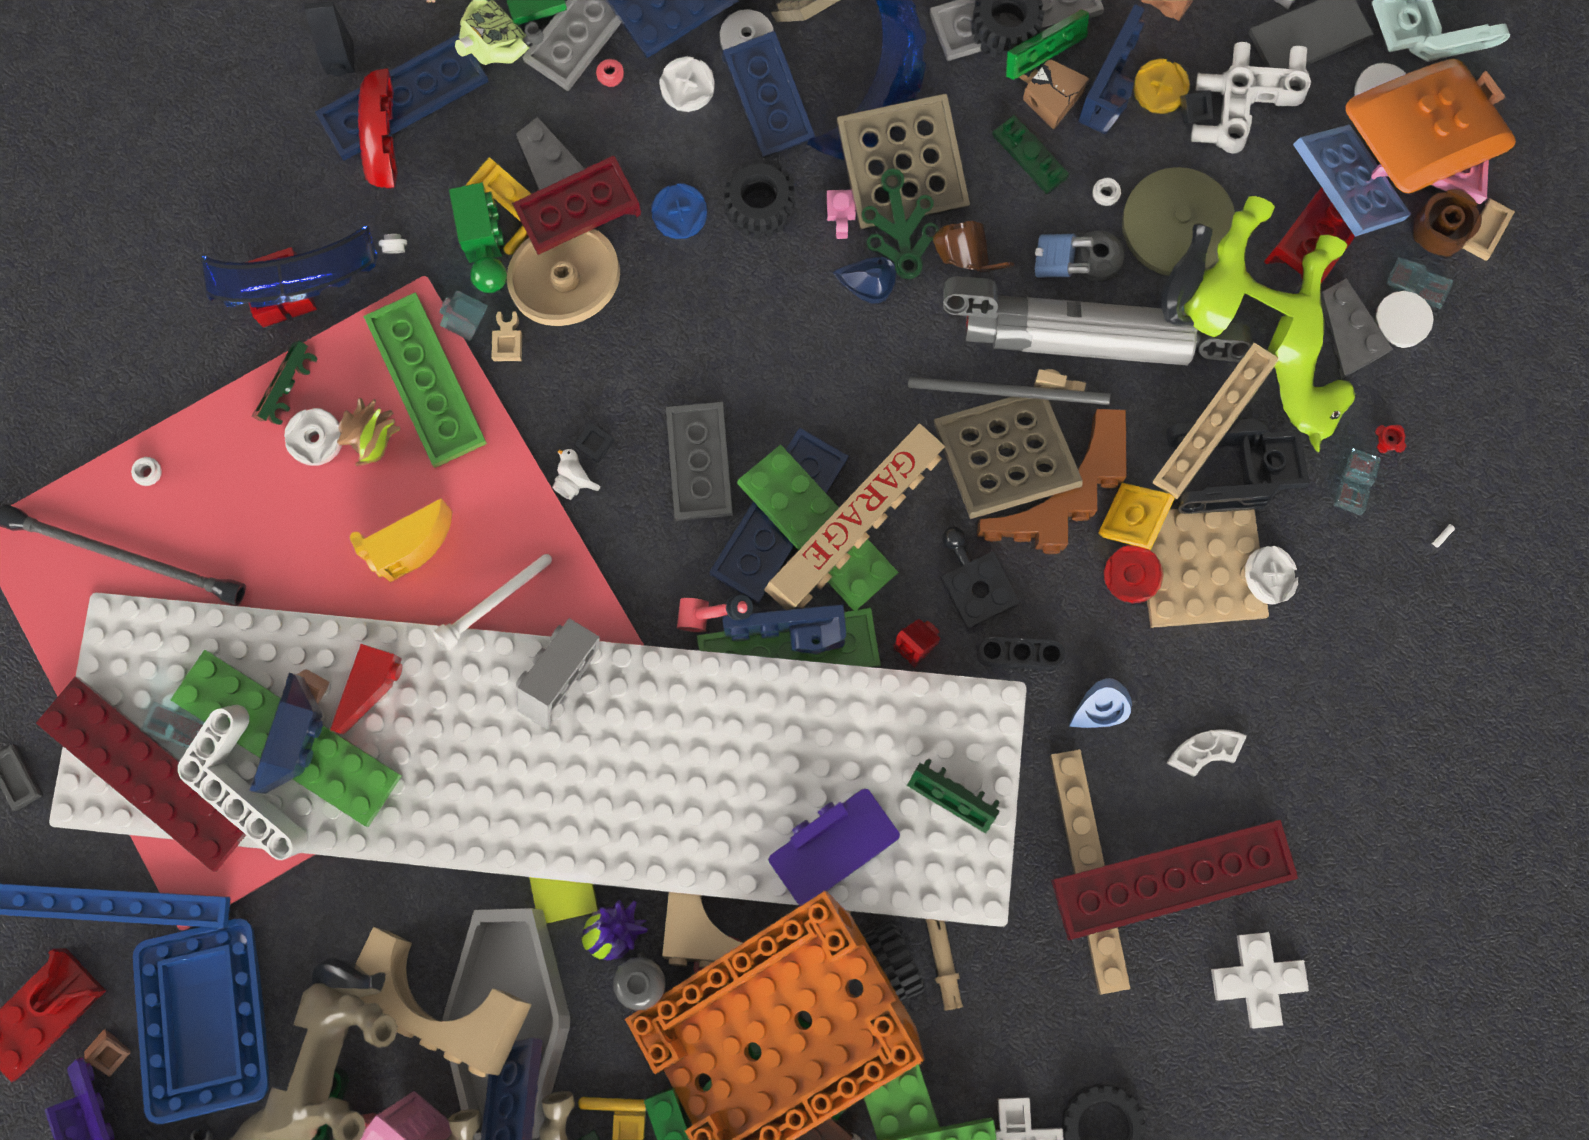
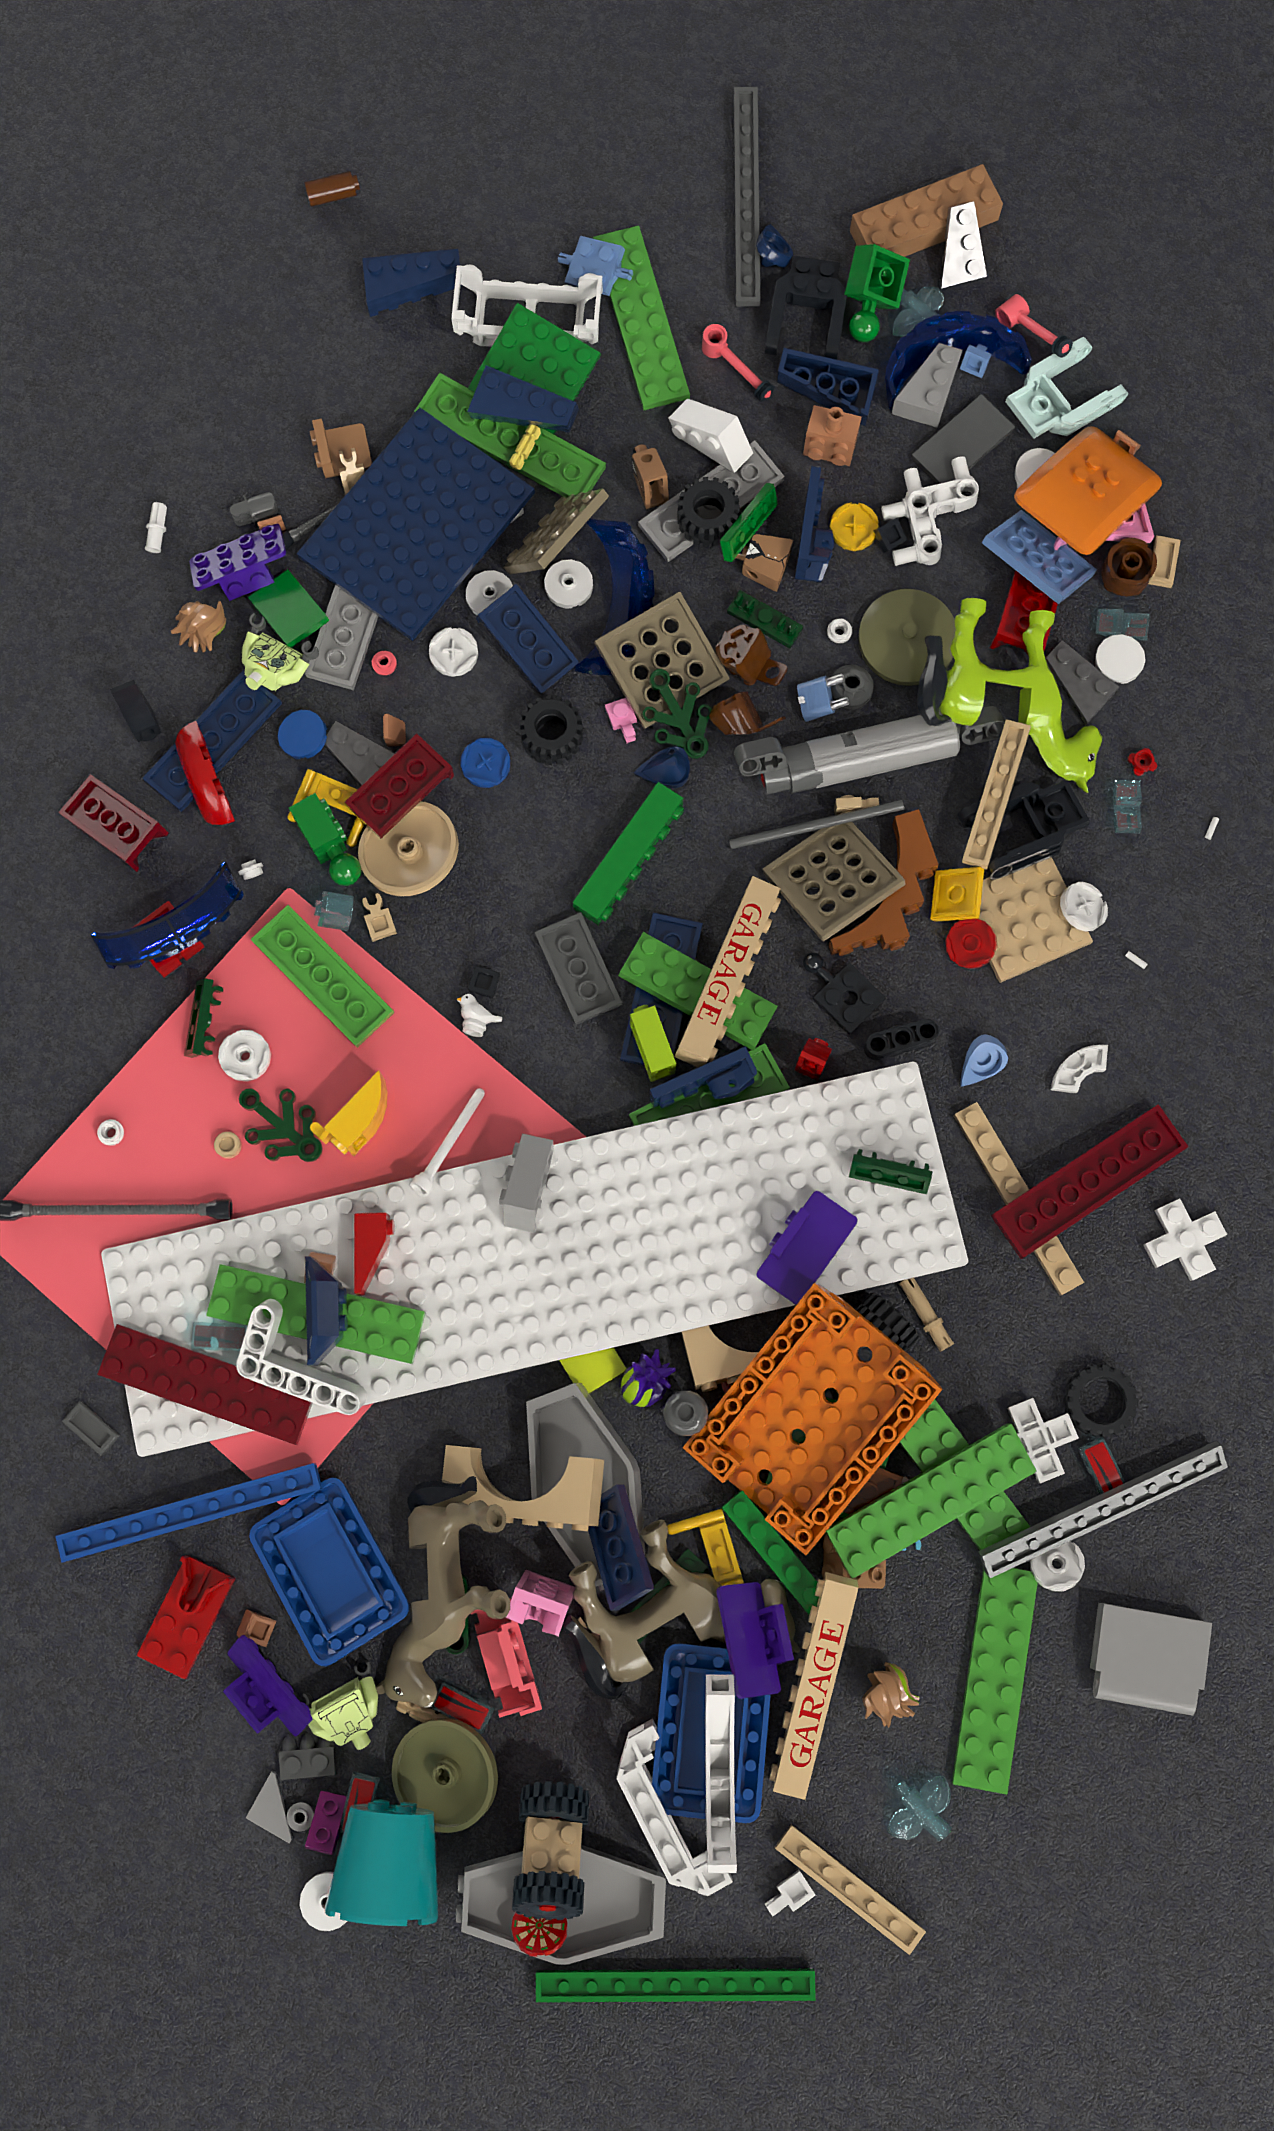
camera: 20 degrees left, 0 degrees up
(262, 525) = (227, 1145): none -> tan tile
(266, 146) = (111, 820): none -> plate
(328, 527) = (284, 1128): none -> dark green plant
(367, 431) = (290, 1036): medium nougat hair -> none
(497, 120) = (302, 734): none -> blue tile
(593, 146) = (393, 731): none -> nougat slope
(695, 612) = (620, 1095): coral piece -> none
(746, 562) = (652, 1042): none -> lime window
(796, 356) = (628, 854): none -> green brick
(835, 63) = (568, 595): none -> white plate
(998, 186) = (748, 656): none -> reddish brown piece
(1310, 652) = (1135, 959): none -> white piece

